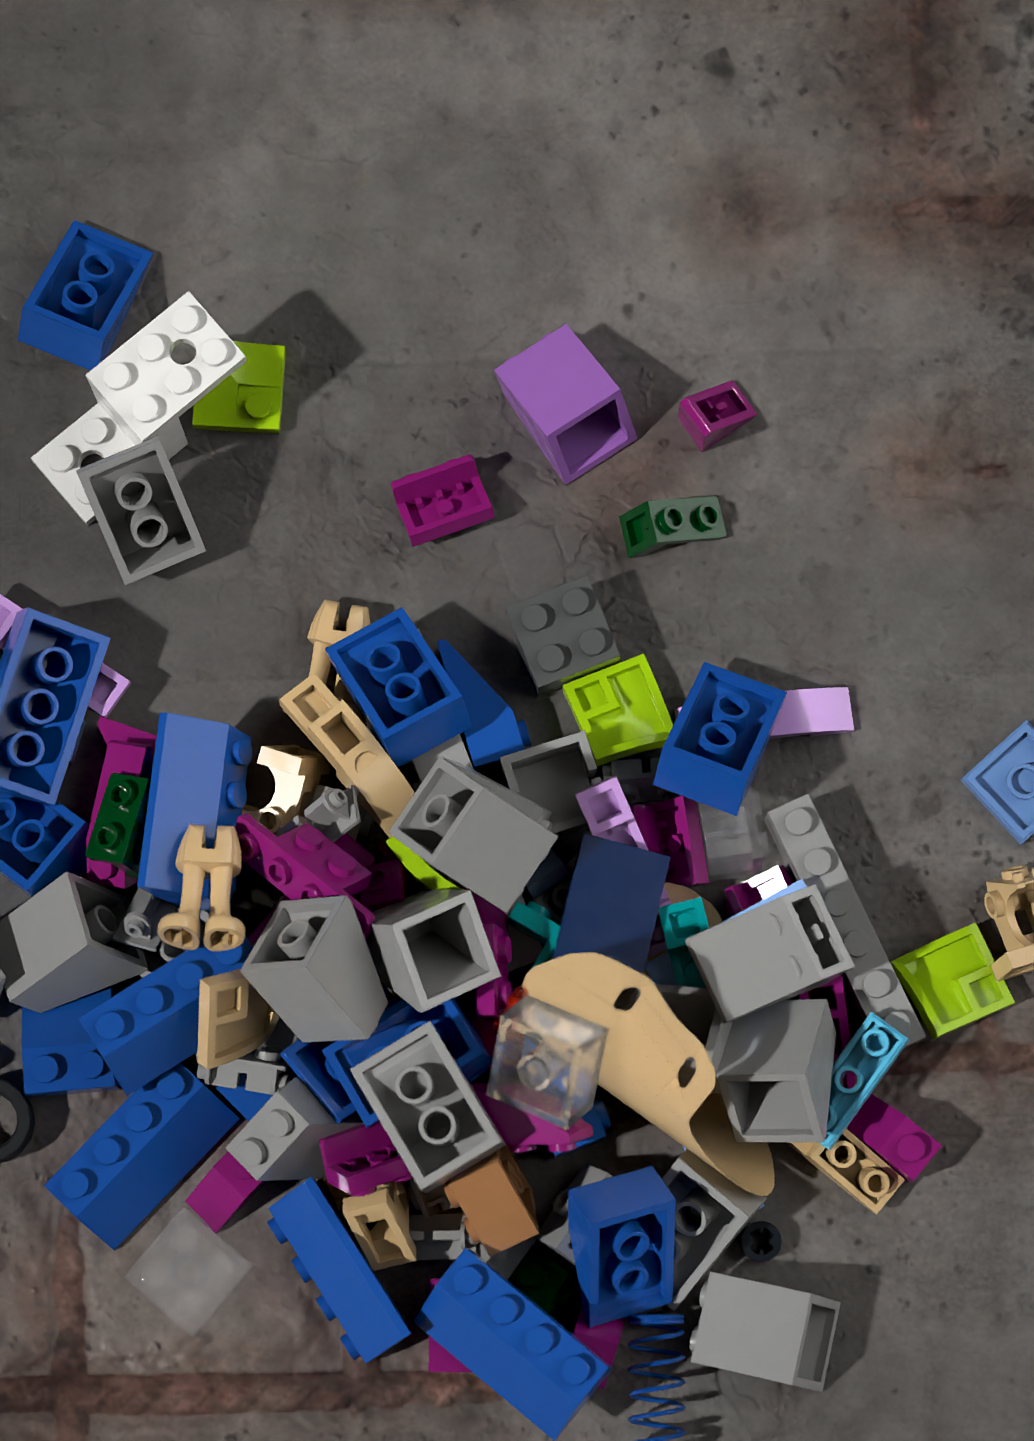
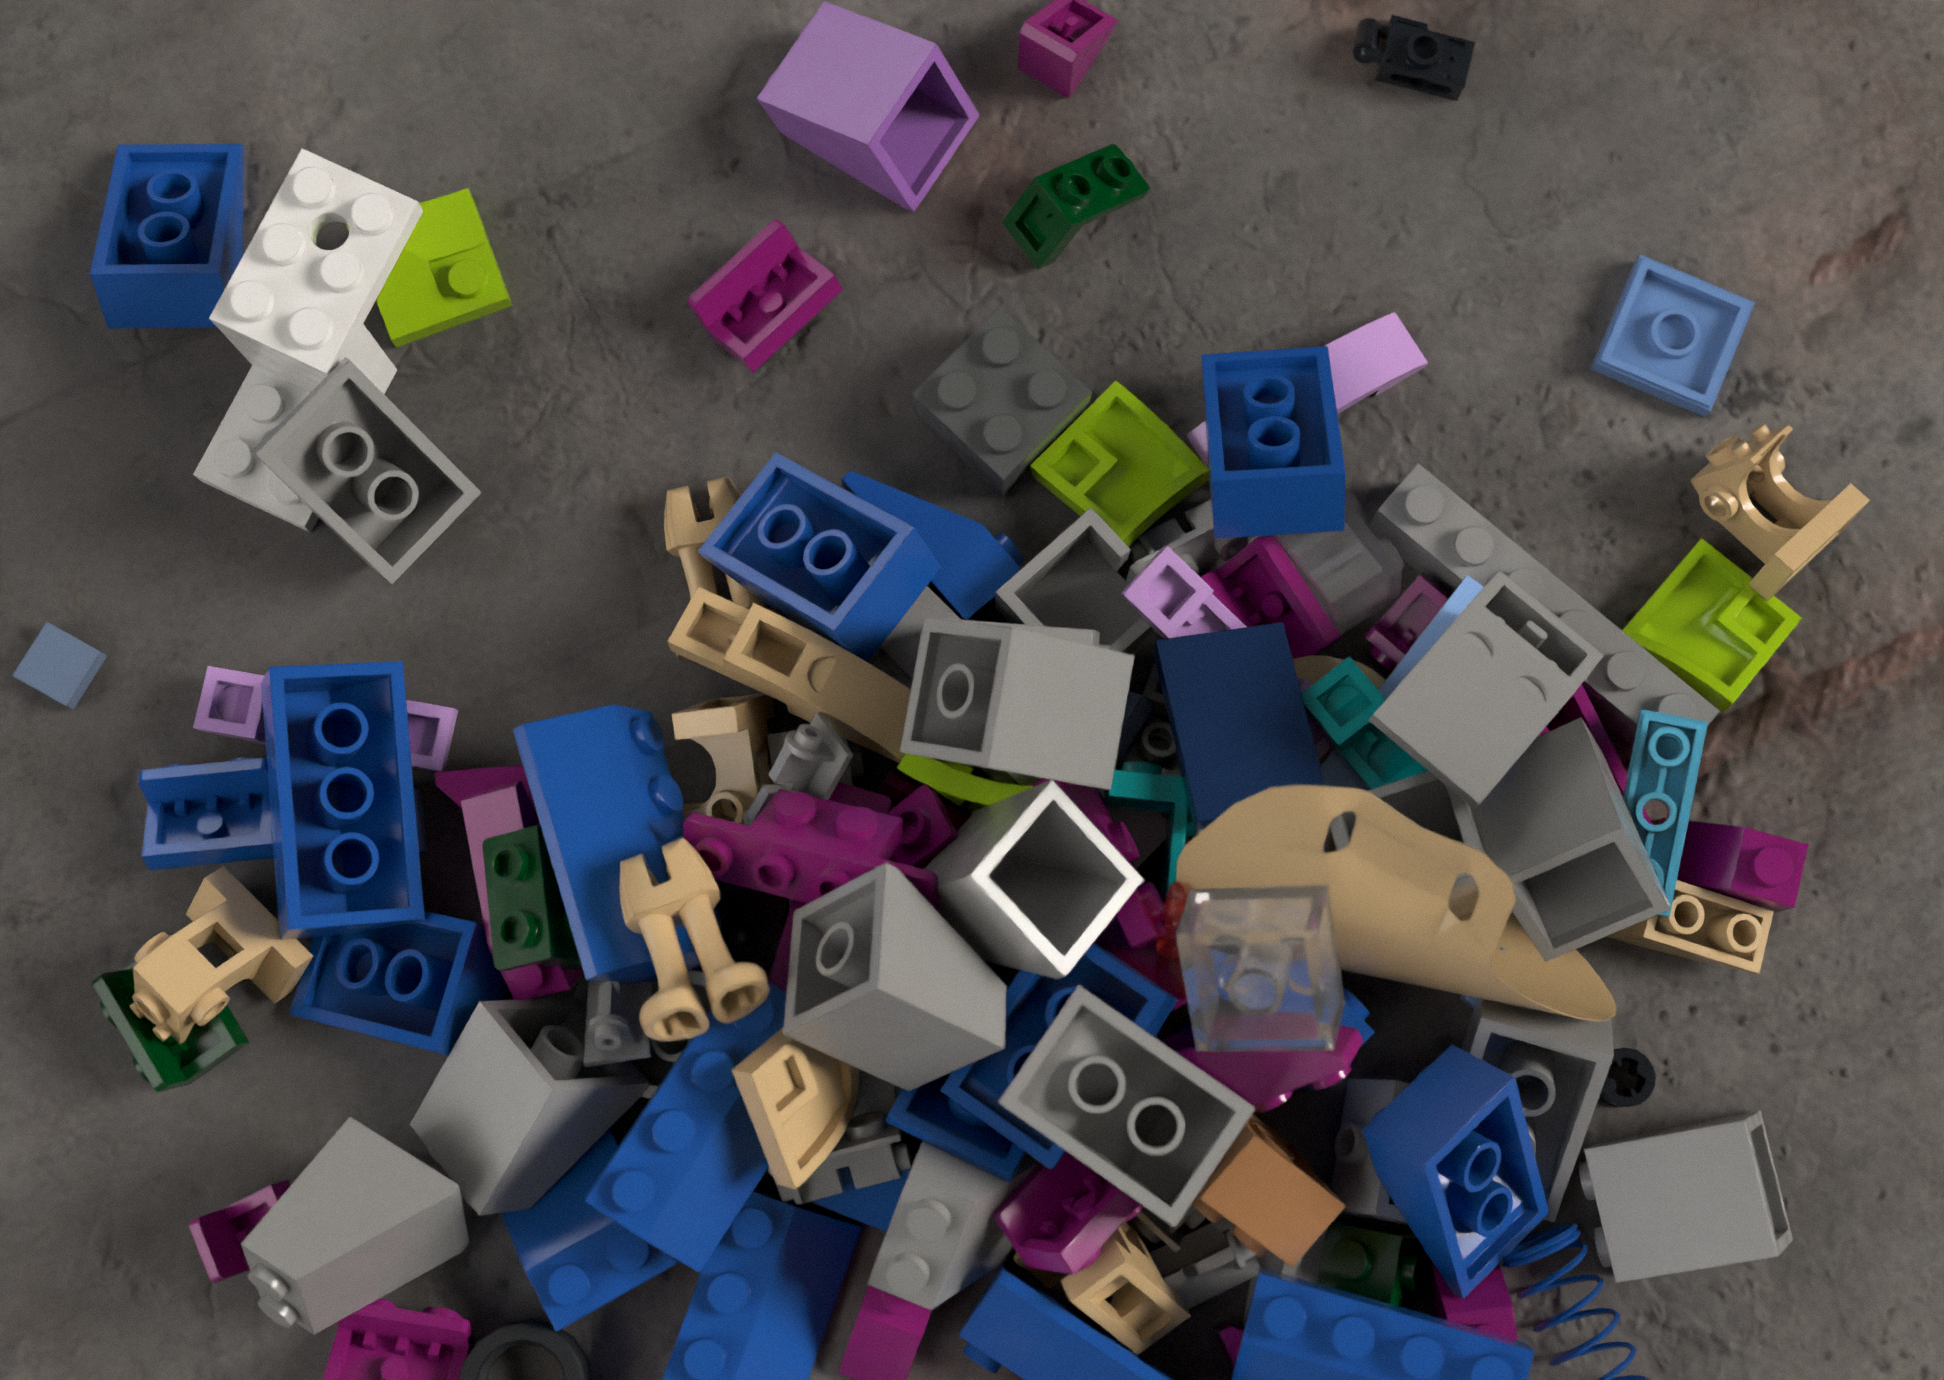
camera: 25 degrees left, 0 degrees up
(939, 523) = (1415, 56): none -> black piece

